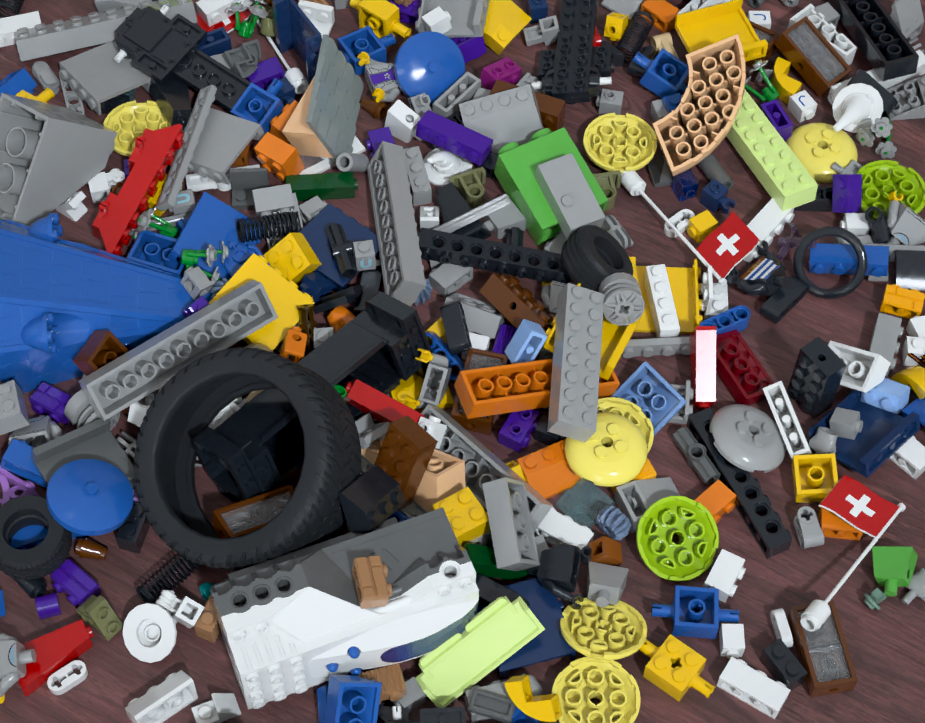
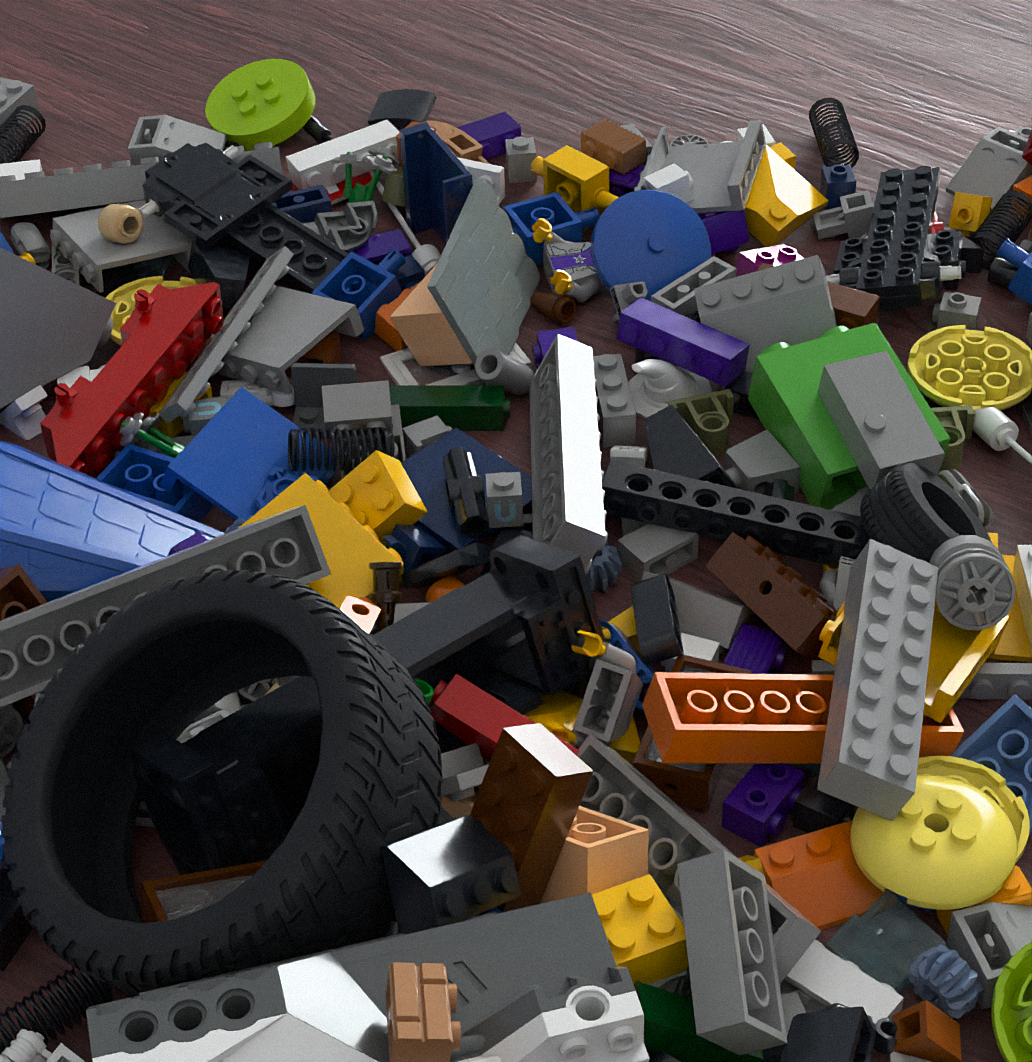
camera: 10 degrees right, 15 degrees down
(105, 69) = (120, 223): none -> tan head
(191, 257) = (199, 478): plant -> none
(196, 282) = (199, 513): light grey brick -> none
(278, 157) = (380, 353): orange piece -> none
(402, 122) = (597, 321): white torso -> none
(434, 428) = (602, 782): white brick -> none
(474, 214) = (713, 442): light grey axle -> none
(526, 342) = (786, 643): light blue brick -> none

